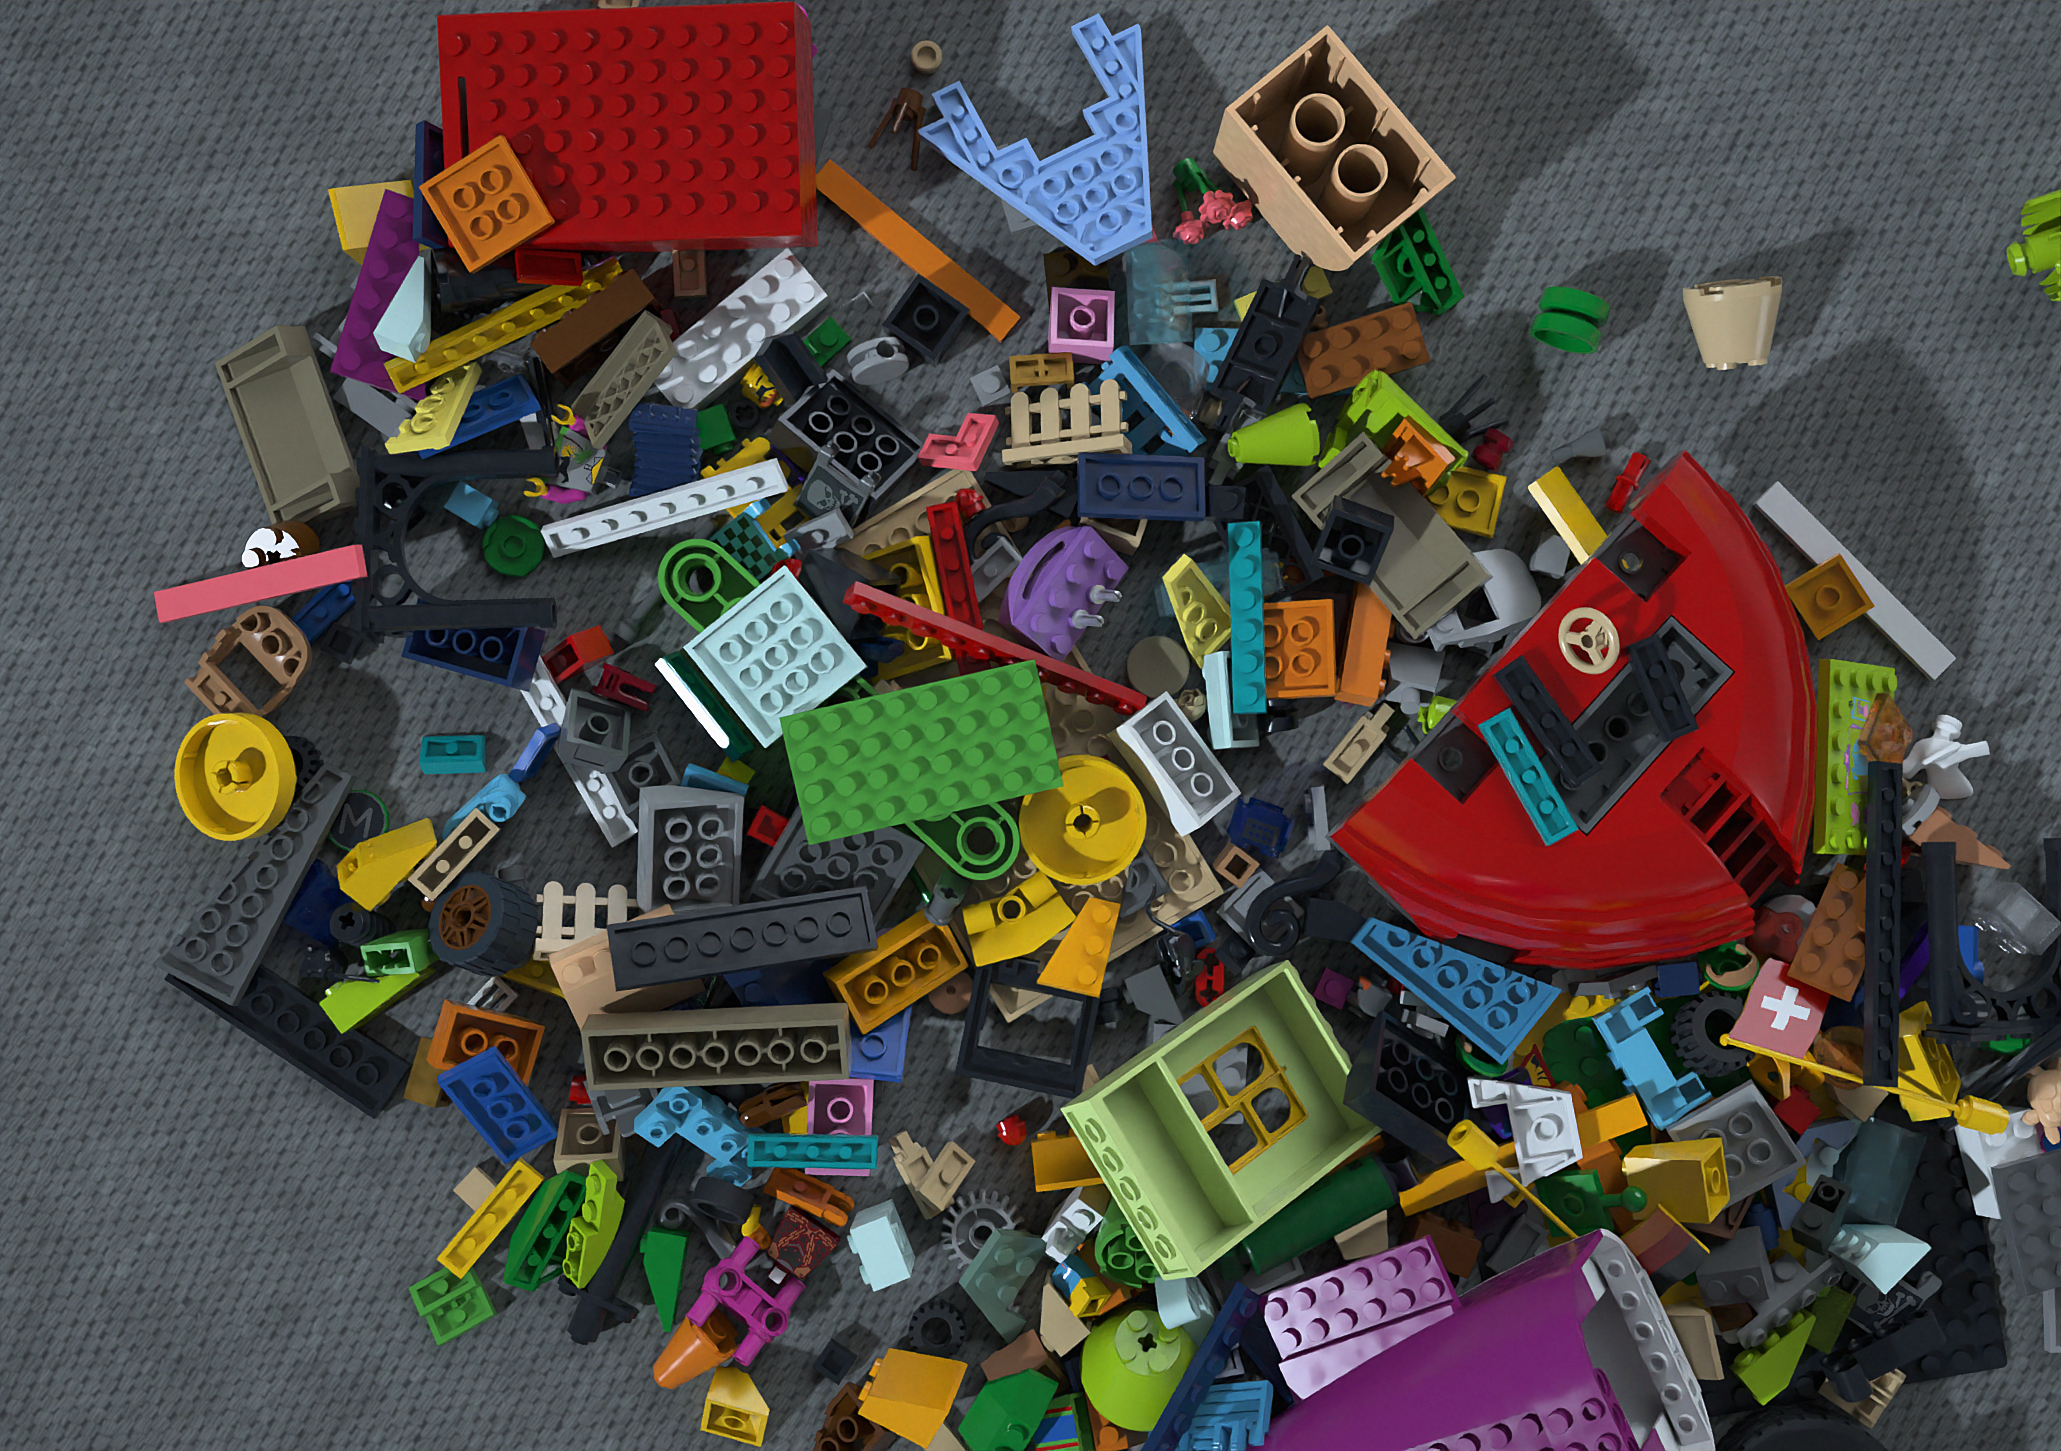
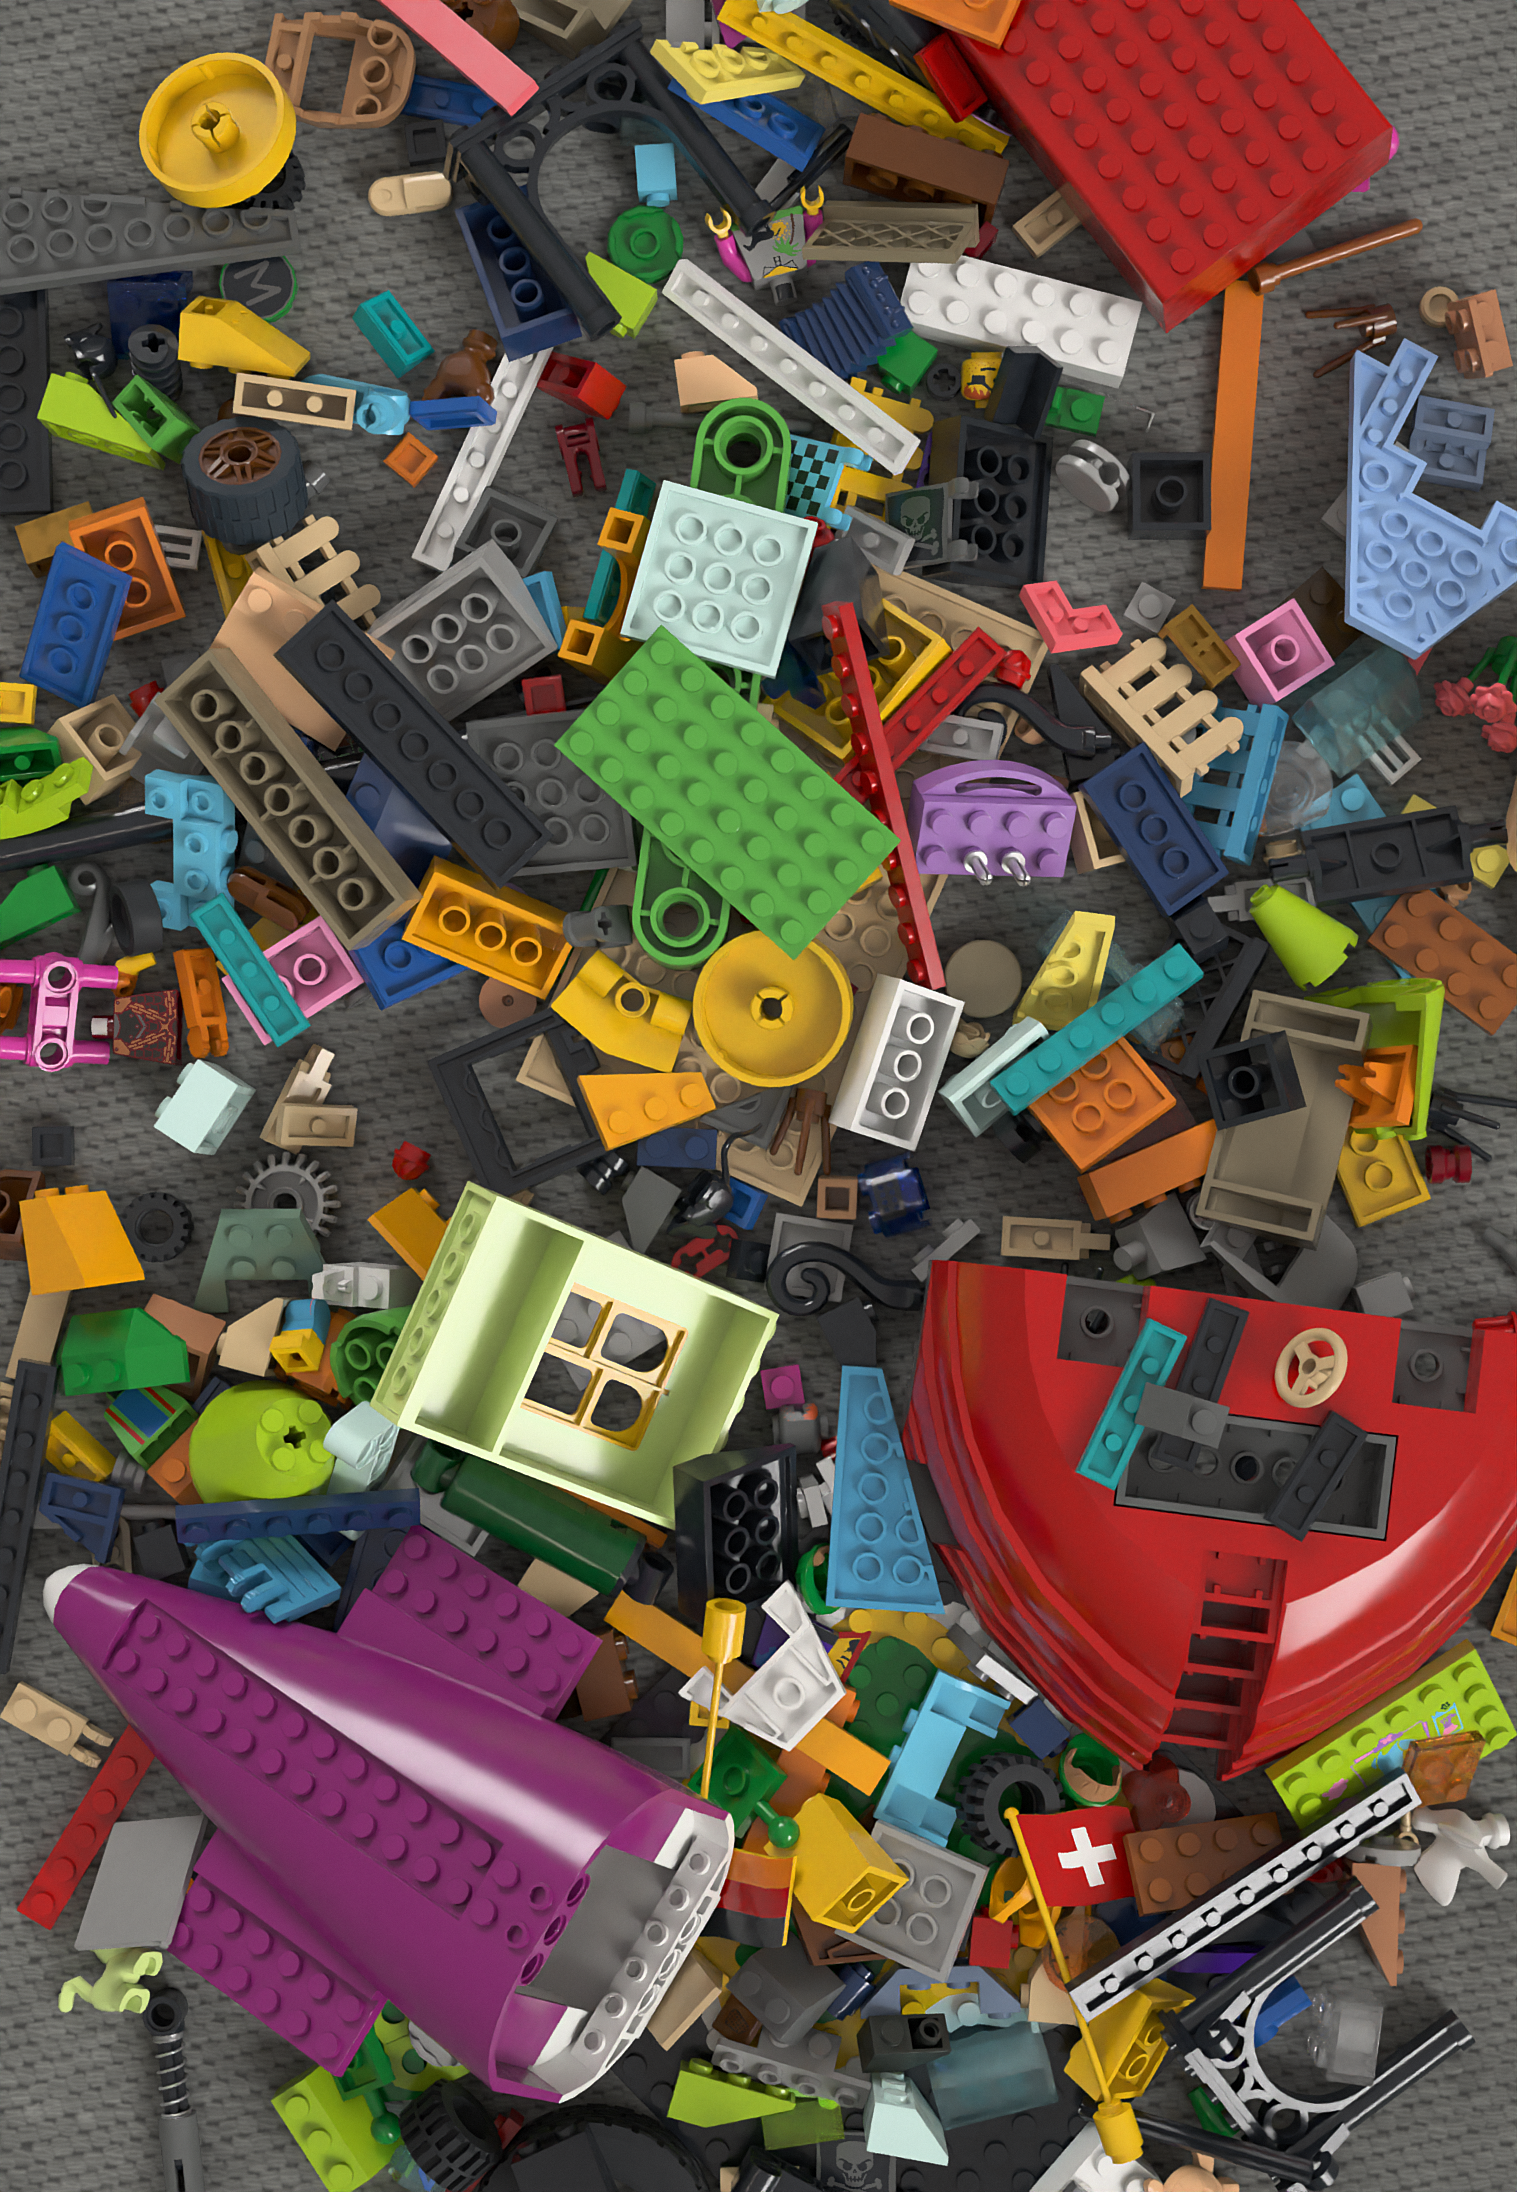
camera: 60 degrees right, 0 degrees up
(369, 677) = (410, 193): none -> tan arm
(514, 724) = (465, 371): none -> reddish brown animal
(538, 582) = (627, 294): none -> lime slope
(546, 801) = (411, 459): none -> orange tile
(595, 732) = (515, 457): dark grey slope -> none
(637, 569) = (708, 382): none -> light nougat slope
(765, 766) = (599, 650): none -> light orange arch
(827, 155) = (1265, 276): none -> dark orange piece
(964, 44) = (1478, 335): none -> nougat bracket
(1020, 112) = (1451, 441): none -> sand blue slope
(1130, 946) = (679, 1148): none -> dark blue plate
(1163, 842) = (809, 1107): none -> reddish brown plant
(1560, 749) = (1181, 1415): none -> dark grey slope
(1568, 514) = (1438, 1283): yellow tile -> none

